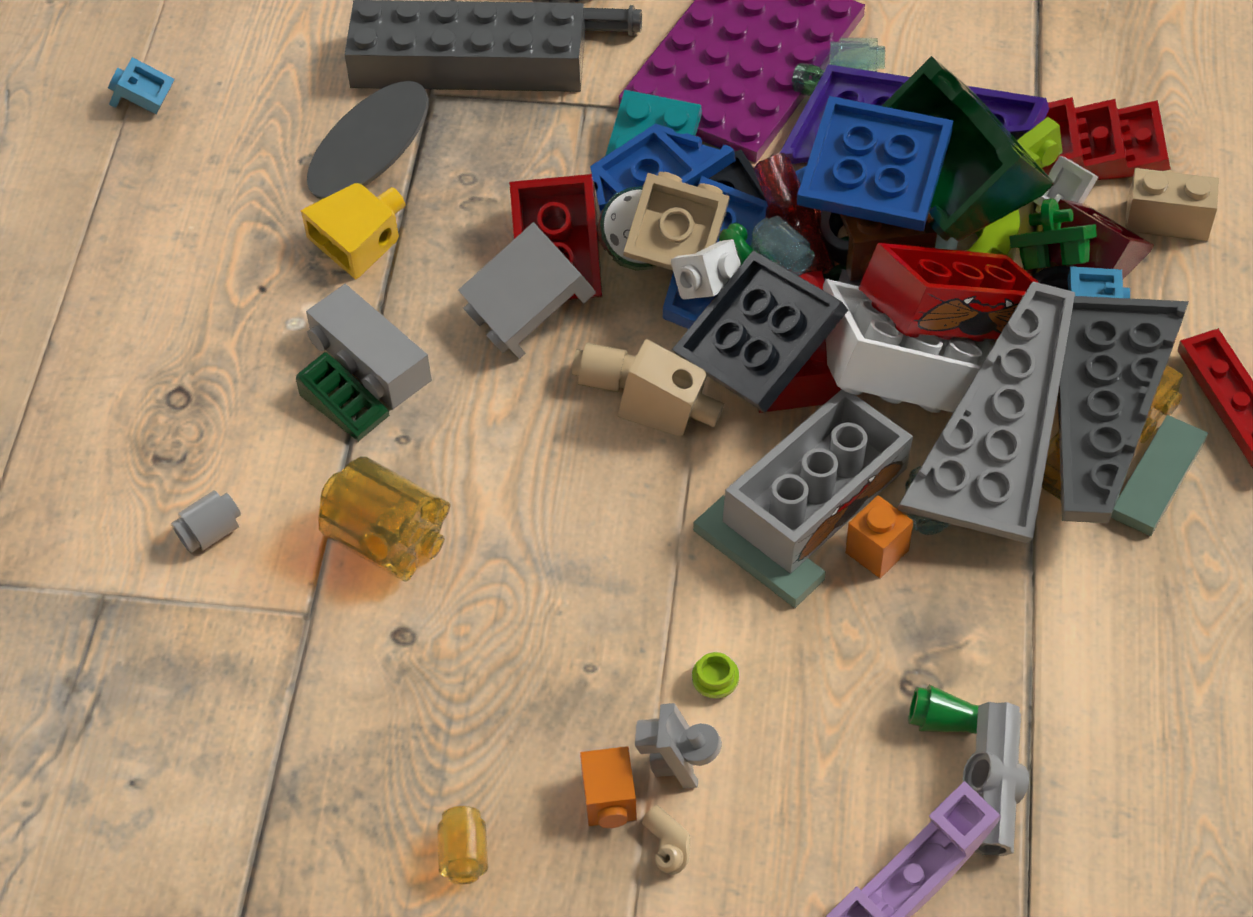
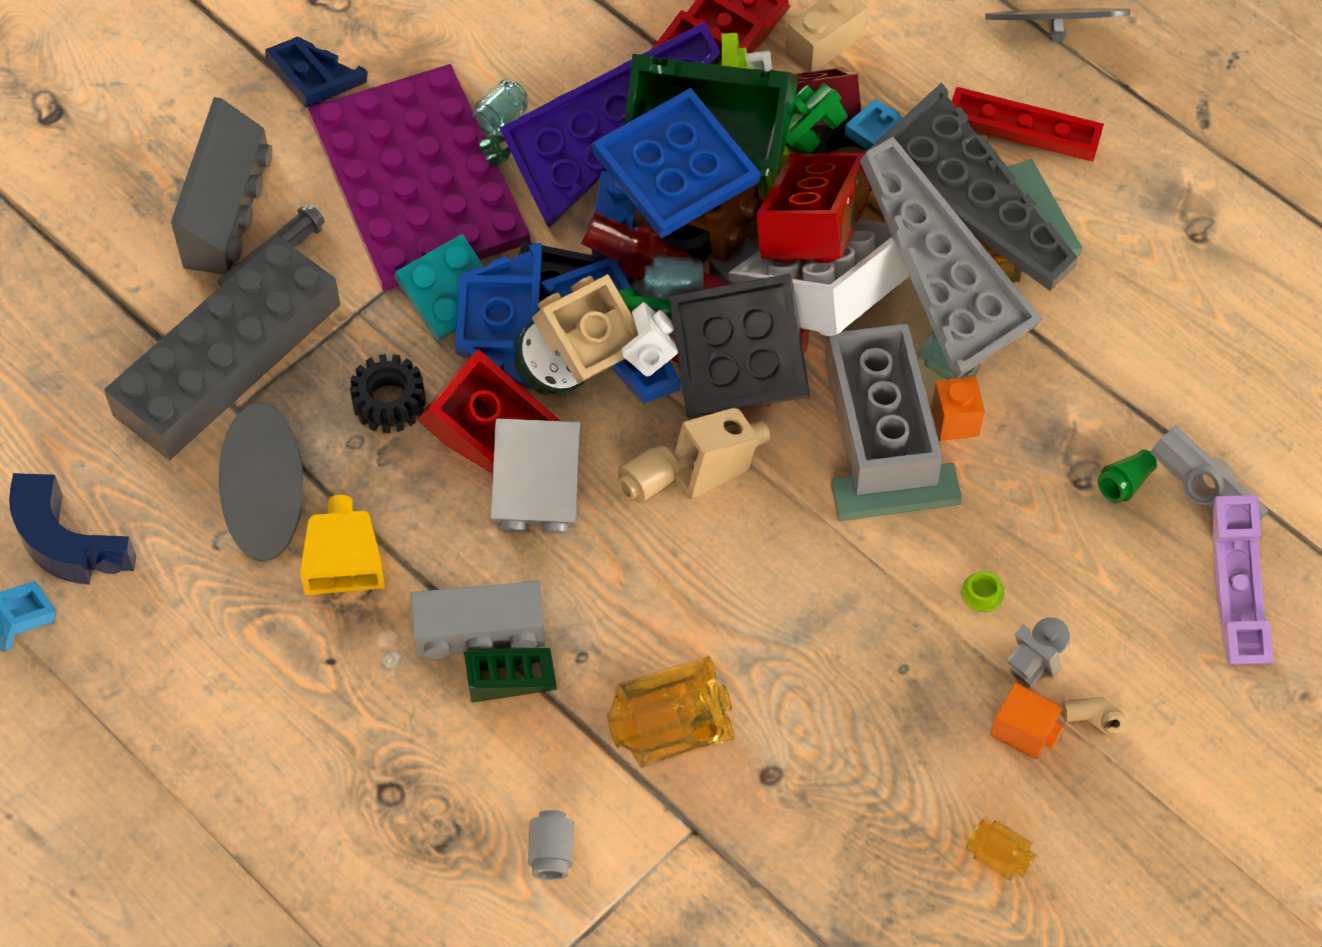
camera: 55 degrees left, 5 degrees up
(217, 53) = (70, 556): none -> dark blue arch
(517, 148) = (383, 374): none -> black tyre

